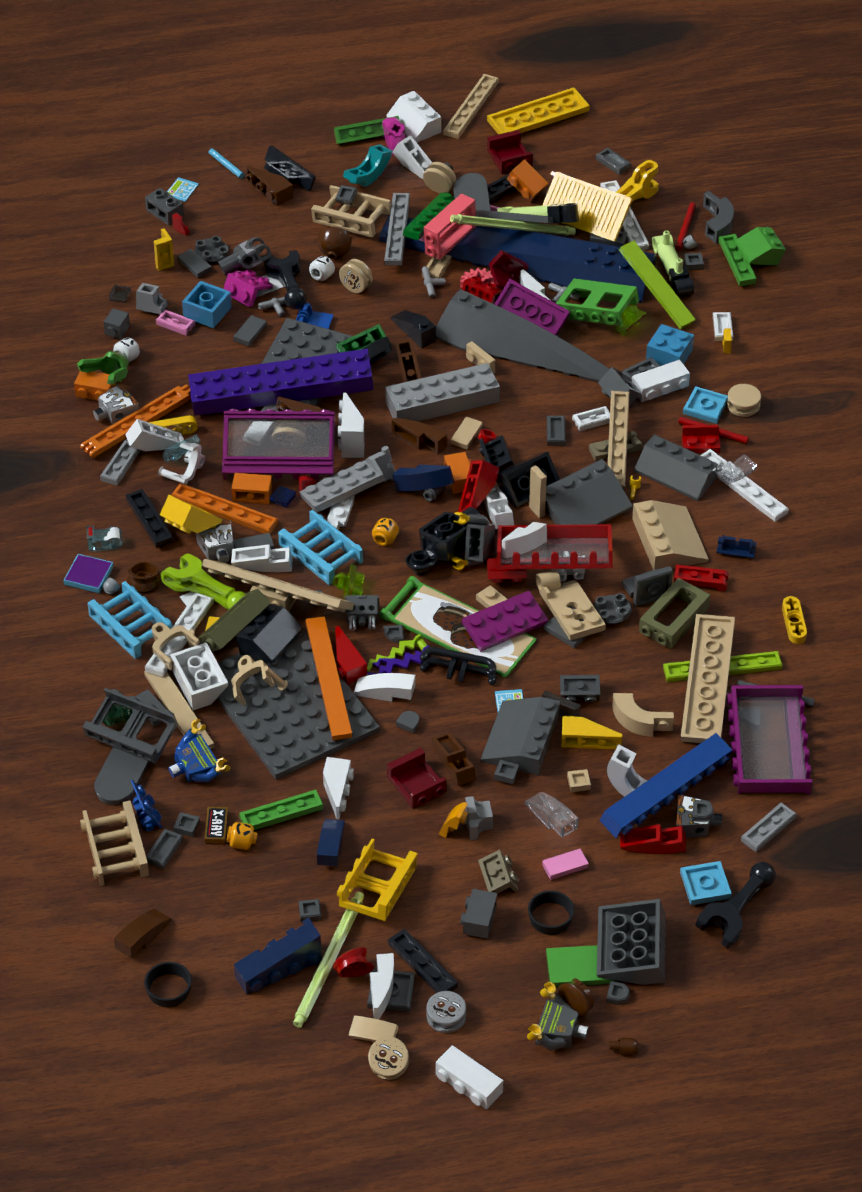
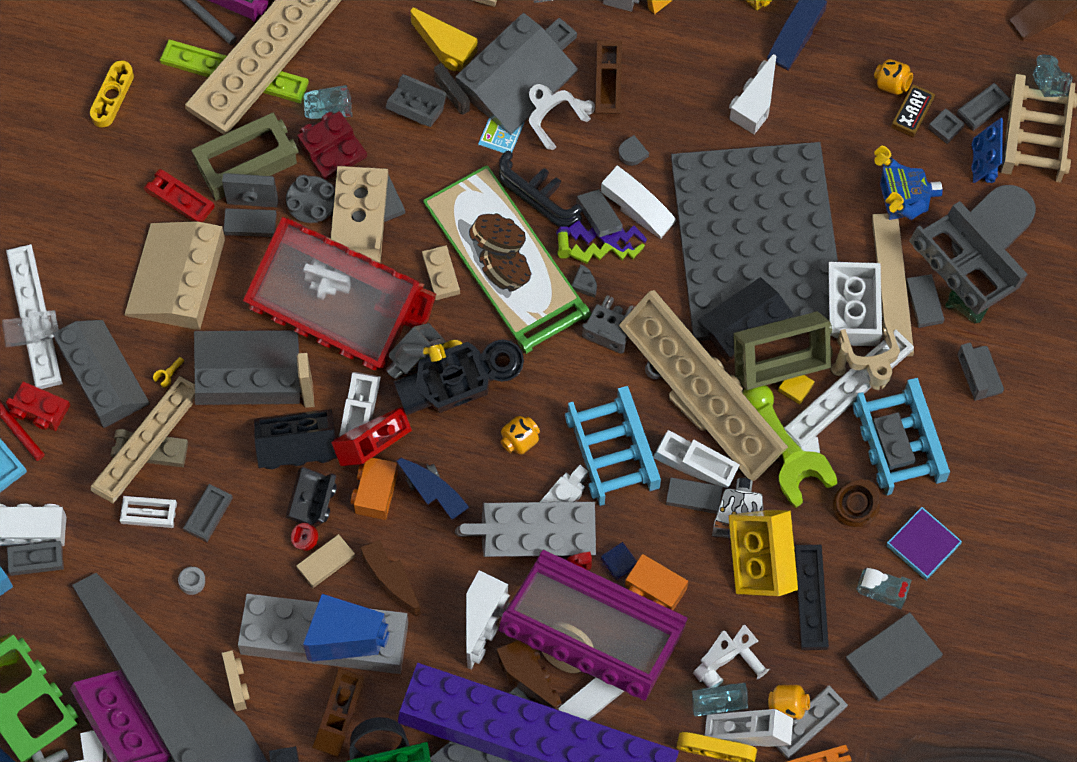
camera: 155 degrees left, 20 degrees up
(81, 510) = (894, 657): none -> dark grey tile
(93, 678) = (980, 371): none -> dark grey panel
(111, 586) = (903, 505): light grey hinge -> none
(122, 875) = (1050, 78): none -> clear light blue leg
(133, 607) = (894, 441): none -> dark grey plate
(137, 459) = (789, 700): none -> light orange head
(226, 509) = (703, 573): orange tile -> none
(248, 668) = (795, 272): tan piece -> none
(282, 810) = (834, 93): bright green plate -> none
(328, 678) = (702, 232): orange tile -> none
(347, 582) = (608, 372): clear neon green hips -> none
(349, 661) = (664, 256): red slope -> none
(405, 665) = (599, 213): none -> dark grey tile
(415, 779) = (663, 67): dark red panel -> none
(423, 371) = (344, 631): none -> blue slope
(484, 712) = (550, 100): none -> white piece
(504, 621) = (450, 229): magenta plate -> none
(524, 539) = (365, 315): white slope -> none
(541, 397) = (191, 580): none -> light grey tile
(616, 381) = (88, 530): dark grey brick -> none
(621, 645) = (331, 144): none -> dark red plate
(637, 719) = (378, 35): tan arch -> none
(640, 665) = (328, 100): none -> clear light blue leg
(740, 548) = (107, 221): dark blue hinge -> none

